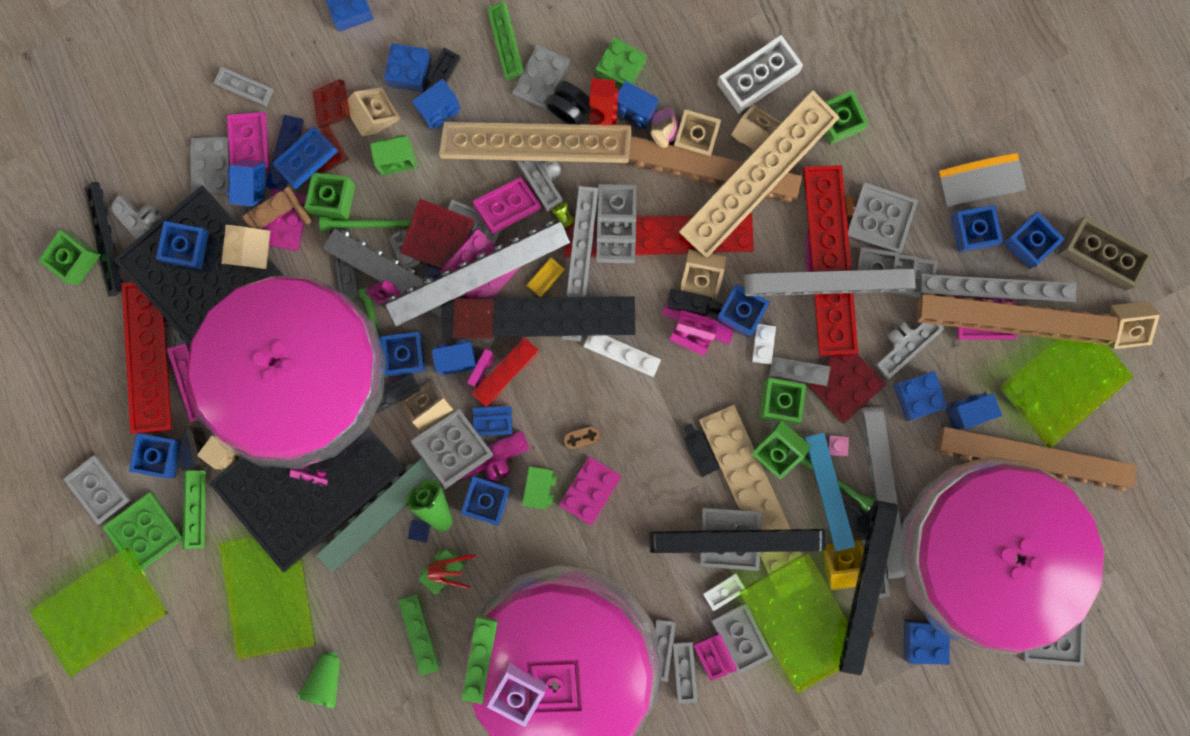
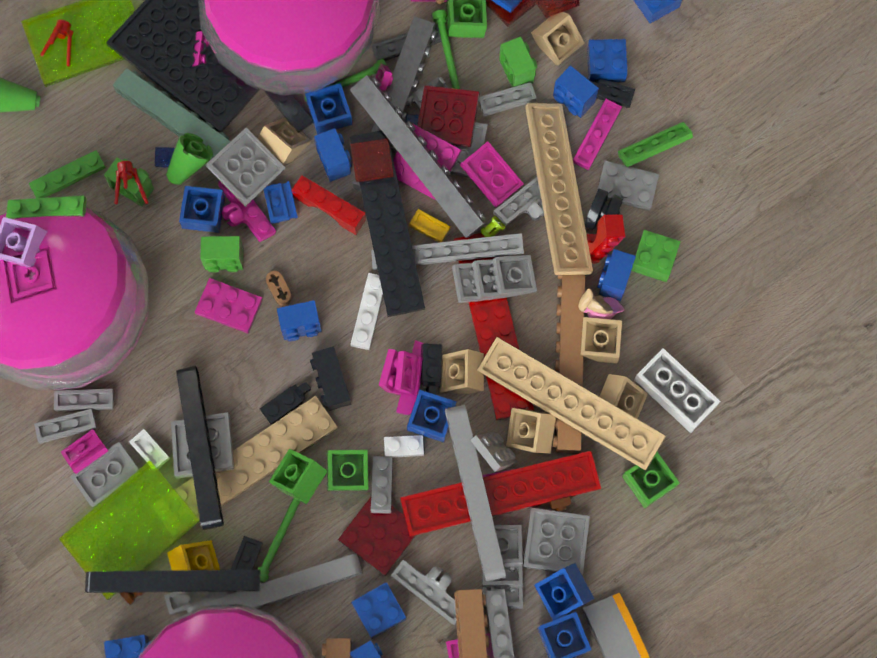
camera: 75 degrees right, 10 degrees down
(258, 619) = (61, 31): none -> red plant
(427, 174) = (507, 99): none -> light grey plate
(483, 94) = (597, 134): none -> dark pink plate
(486, 361) = (334, 183): dark pink plate -> none
(623, 421) = (299, 320): none -> blue brick
(685, 402) = (330, 378): none -> black brick
(774, 220) = (531, 430): none -> tan slope
(792, 256) = (494, 451): none -> light grey plate
(830, 492) = (264, 534): dark azure tile -> none
(838, 445) = (314, 538): bright pink plate -> none
(935, 219) = (564, 591): none -> blue brick

